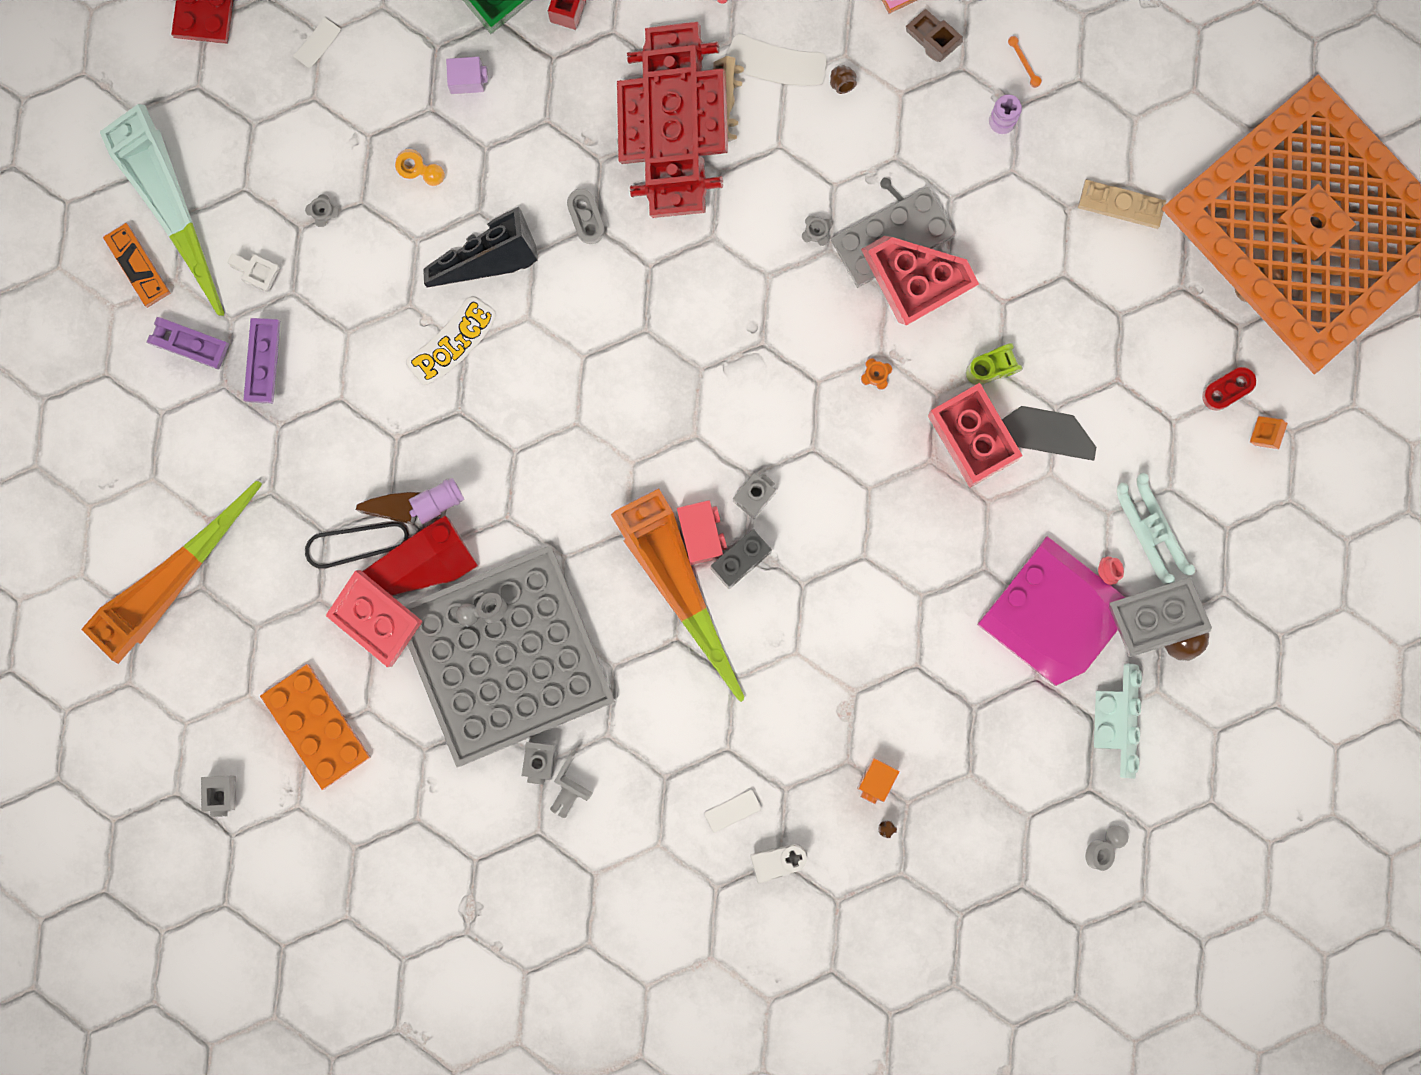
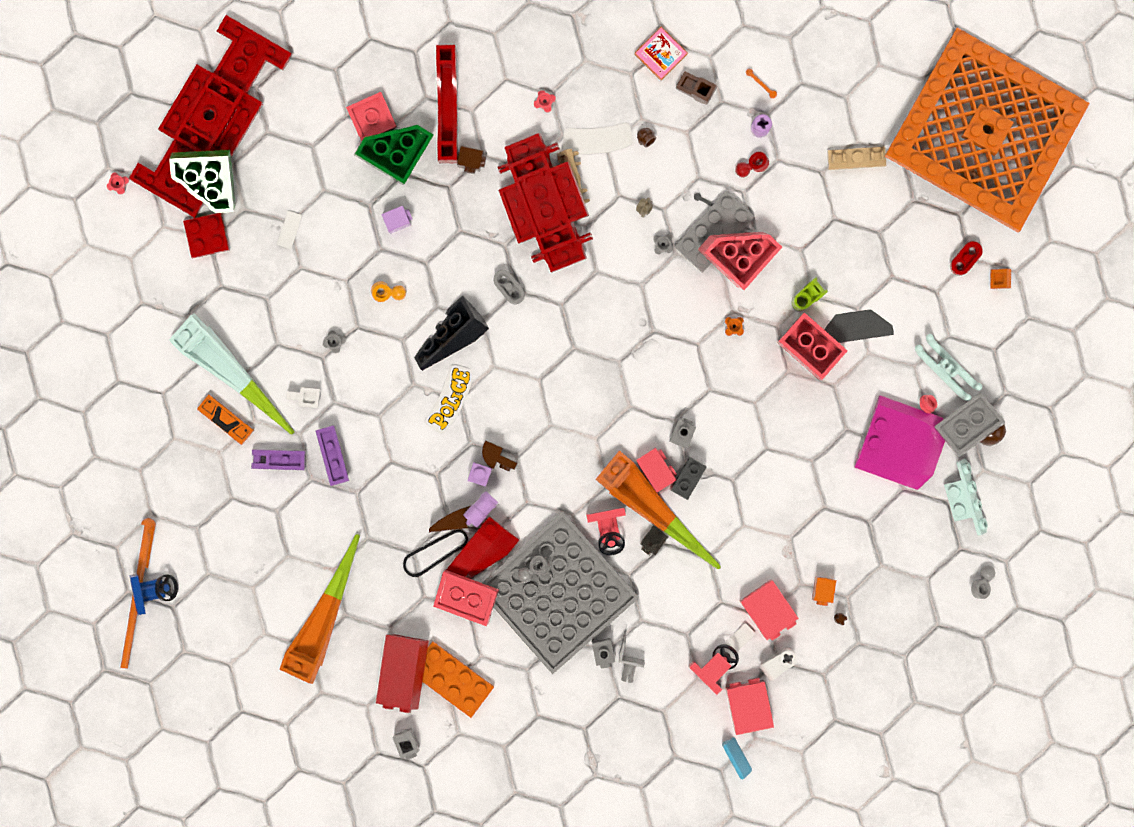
camera: 20 degrees left, 5 degrees up
(247, 692) = (402, 672): none -> red brick
(454, 455) = (479, 474): none -> lavender brick
(482, 436) = (492, 455): none -> reddish brown brick
(594, 29) = (471, 159): none -> reddish brown brick
(606, 592) = (608, 529): none -> coral piece
(662, 630) = (653, 541): none -> clear smoke bracket
(674, 976) = (737, 758): none -> medium azure slope
(688, 836) = (716, 667): none -> coral piece
(717, 909) = (749, 706): none -> coral brick
(791, 783) = (769, 610): none -> coral brick
(808, 170) = (644, 207): none -> dark tan plate
(983, 163) = (743, 169): none -> red plate

